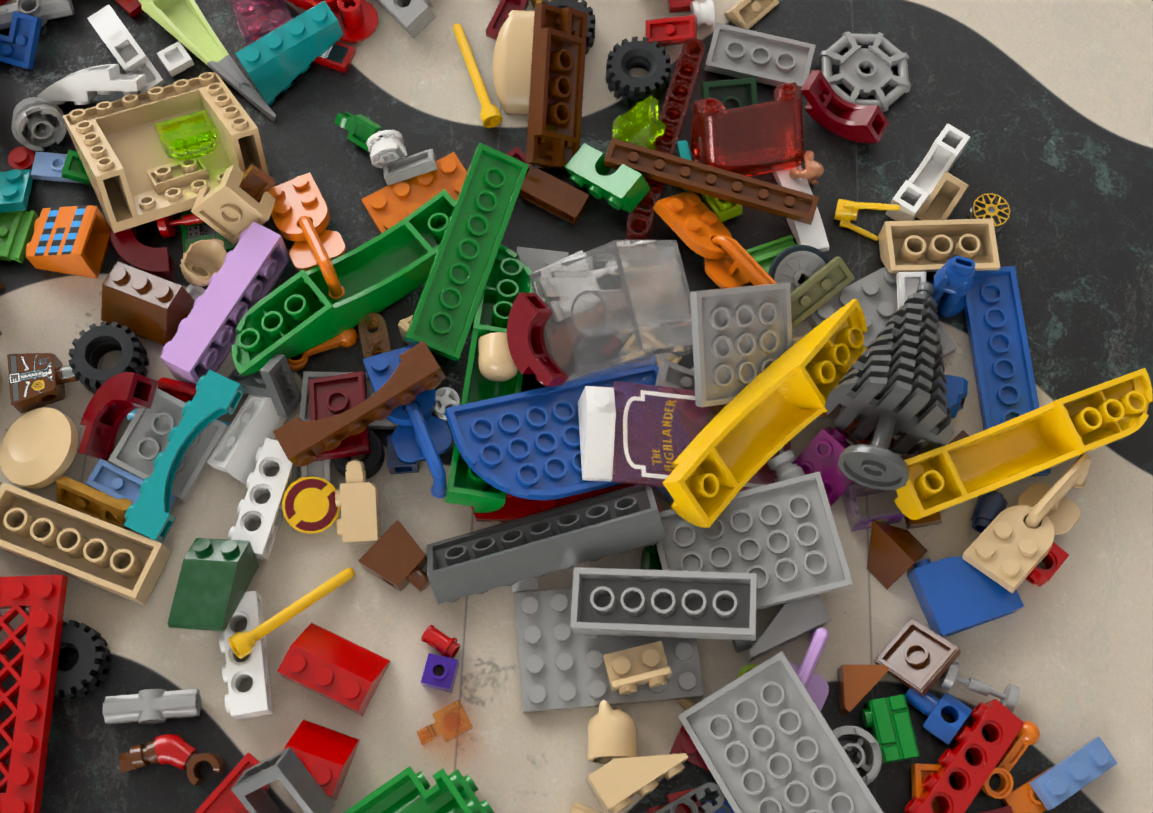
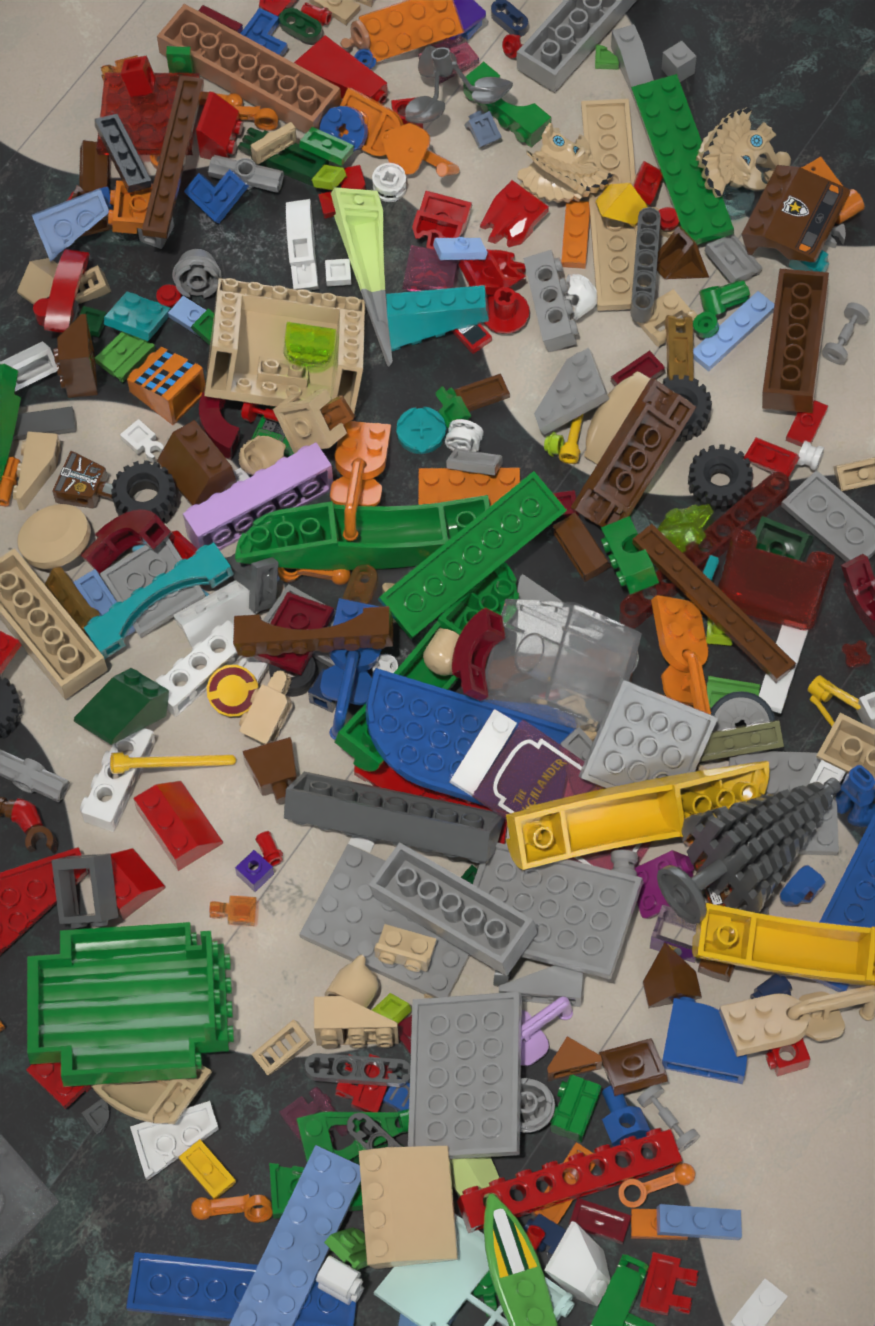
camera: 35 degrees right, 5 degrees down
(74, 306) = (141, 438): none -> white plate
(91, 82) = (261, 259): white slope -> none
(340, 164) = (421, 430): none -> teal tile
(378, 100) = (483, 392): none -> reddish brown tile
(460, 60) = (572, 393): none -> light grey plate
(471, 115) = (553, 444): none -> lime plate
(659, 736) = (393, 1008): none -> lime plate
(812, 170) = (810, 638): nougat piece -> none
(850, 170) = (851, 659): none -> clear red plate

